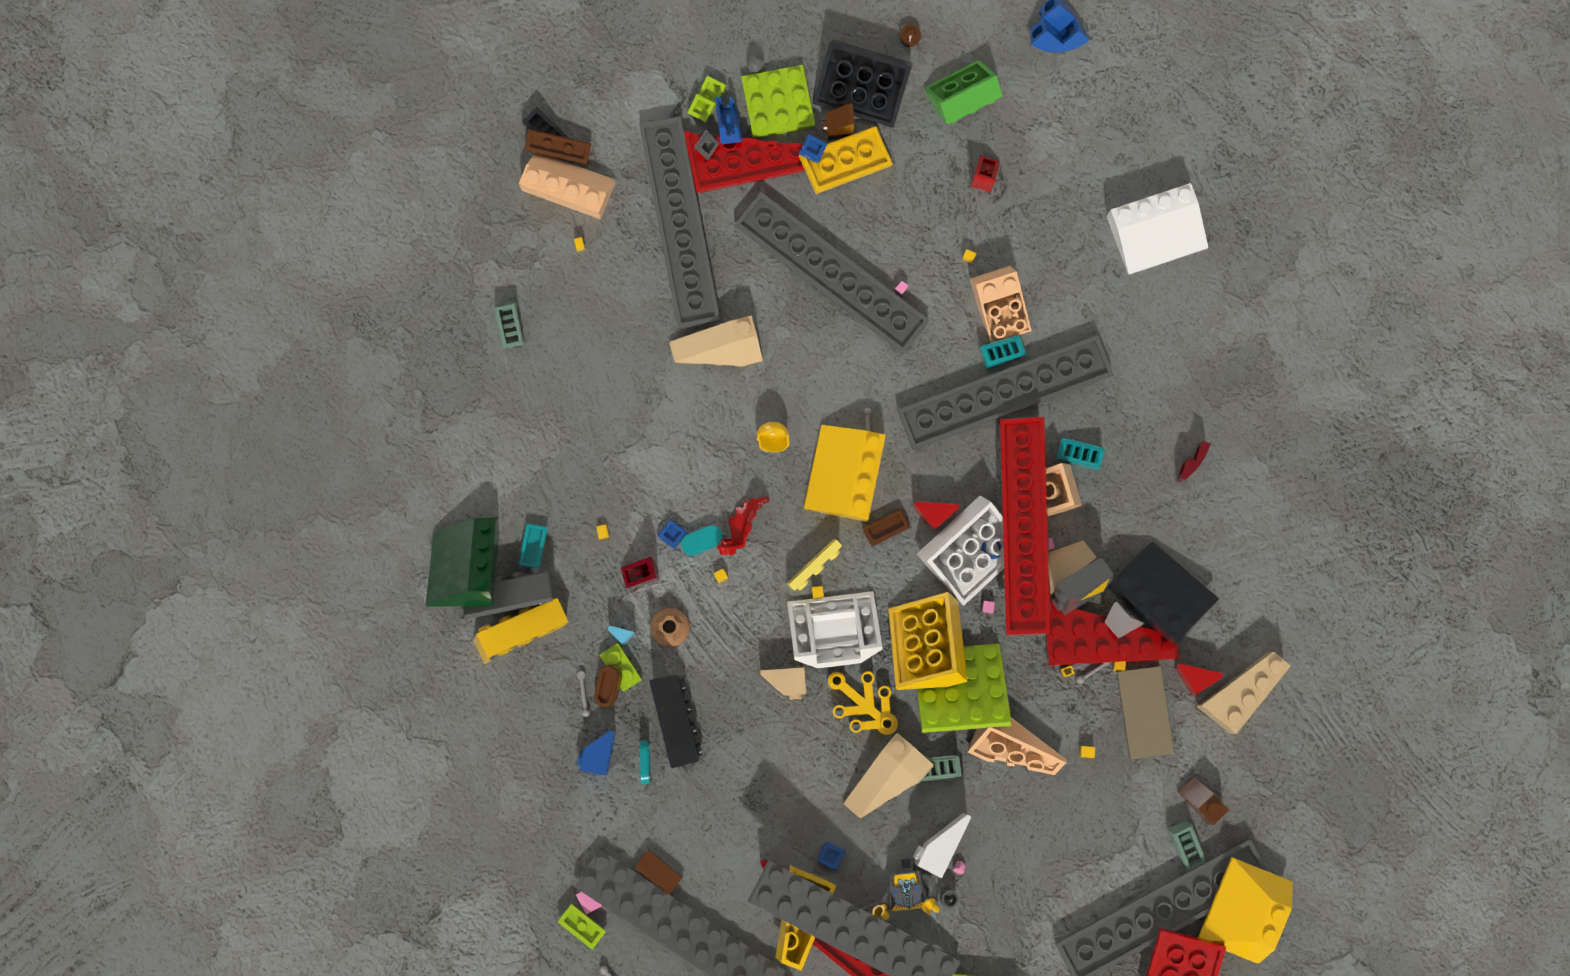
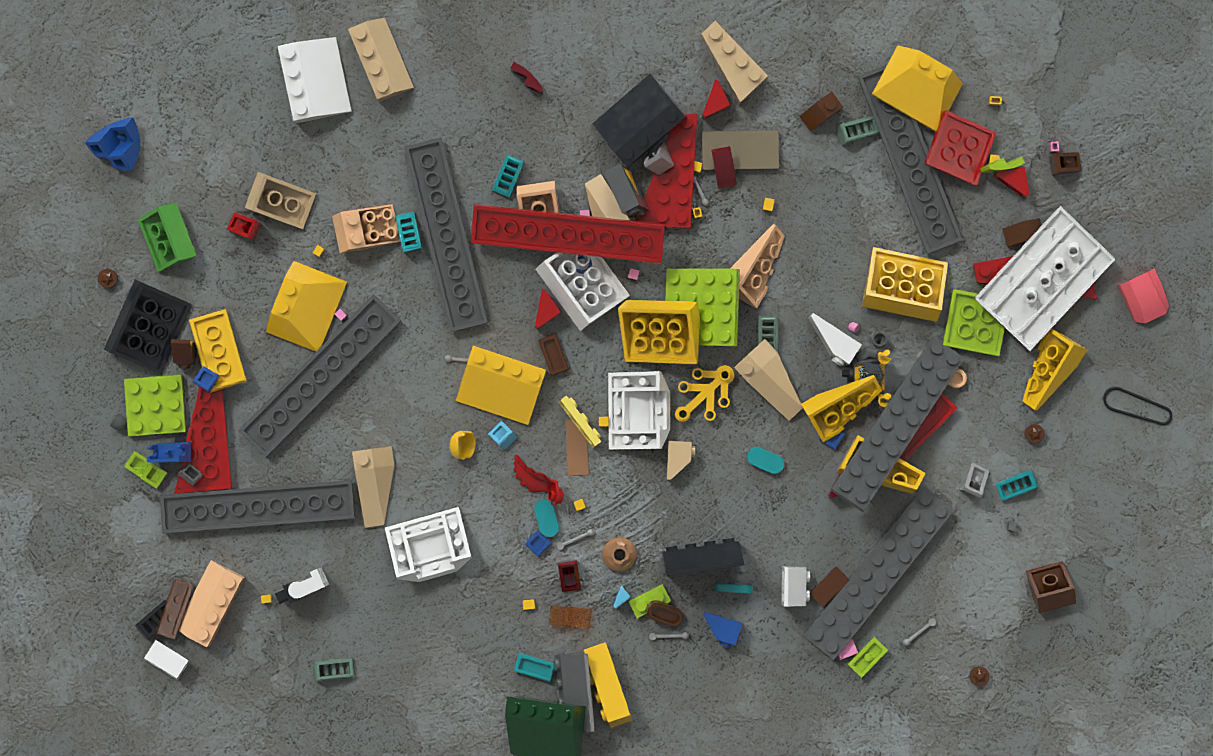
camera: 85 degrees left, 5 degrees up
(501, 144) = (166, 660): none -> white hinge
(591, 272) = (295, 590): none -> white hips
(594, 580) = (570, 616): none -> clear orange slope
(654, 831) = (794, 586): none -> white slope
(655, 412) = (428, 546): none -> white slope
(672, 560) = (561, 545): none -> light grey hinge
(781, 565) = (576, 450): none -> medium nougat sticker
(788, 481) = (502, 435): none -> medium azure slope
(795, 781) = (765, 460): none -> teal tile
(865, 856) = (835, 407): none -> yellow wedge
(906, 248) = (305, 306): none -> yellow slope
(1016, 922) = (905, 284): none -> yellow slope
(1019, 208) = (280, 200): none -> tan slope
(1123, 695) = (724, 167): none -> dark red slope
(1191, 298) = (381, 58): none -> tan slope

